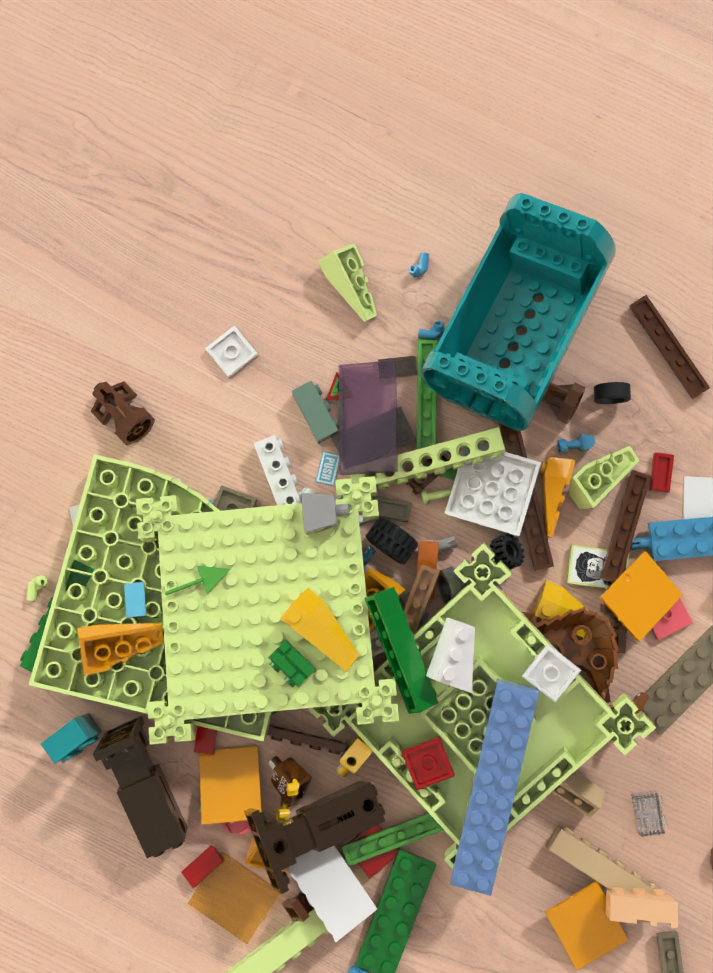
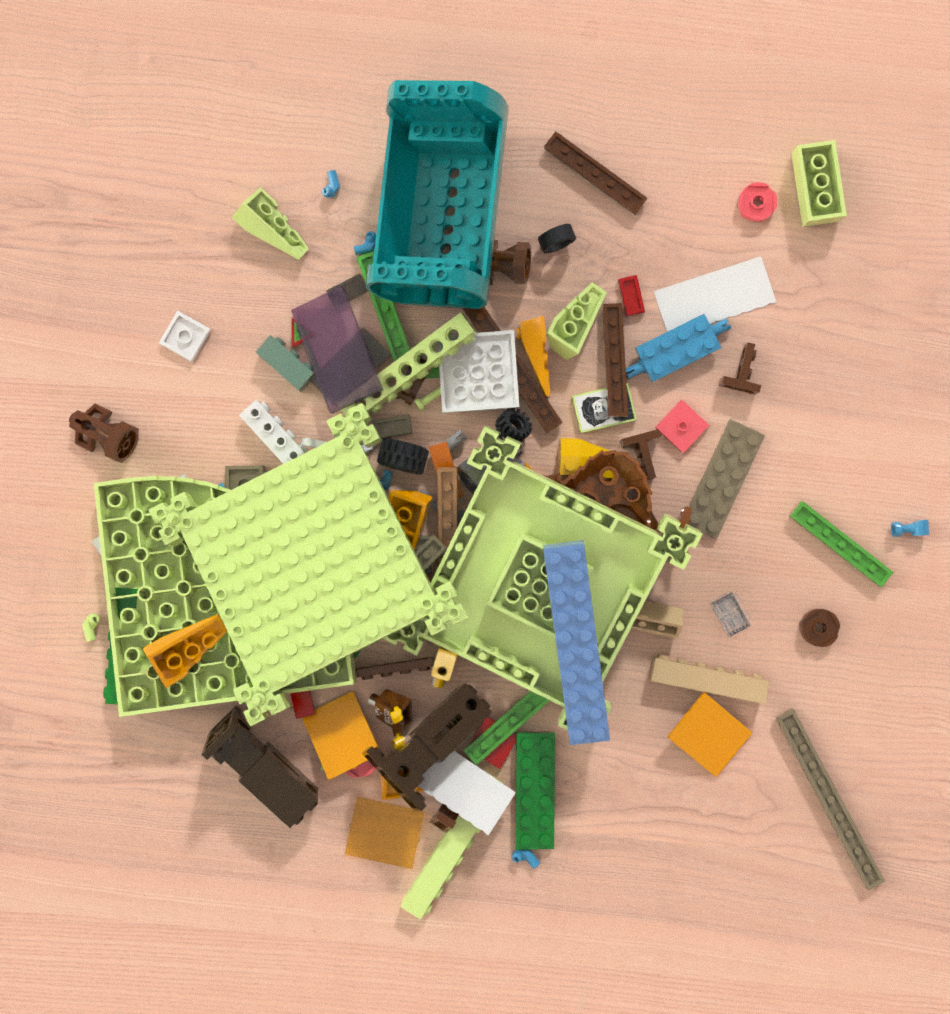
camera: 20 degrees left, 5 degrees up
(71, 739) = (179, 749): teal brick -> none
(135, 599) = (185, 602): medium azure sticker -> none
(202, 866) = (345, 816): red tile -> none
(209, 576) = (244, 554): bright green piece -> none
(292, 664) = (349, 604): green brick -> none
(317, 624) = (358, 559): yellow wedge -> none
(321, 512) = (324, 455): light grey torso -> none
(328, 468) = (318, 412): sticker -> none
(401, 650) = (446, 553): green brick -> none
(428, 763) = (510, 645): red tile -> none
(454, 656) = (495, 540): white wedge -> none
(551, 672) = (590, 521): white tile -> none
(582, 443) = (547, 297): dark azure leg -> none
(641, 596) = (652, 419): light orange piece -> none
(641, 906) = (750, 698): light nougat wedge -> none

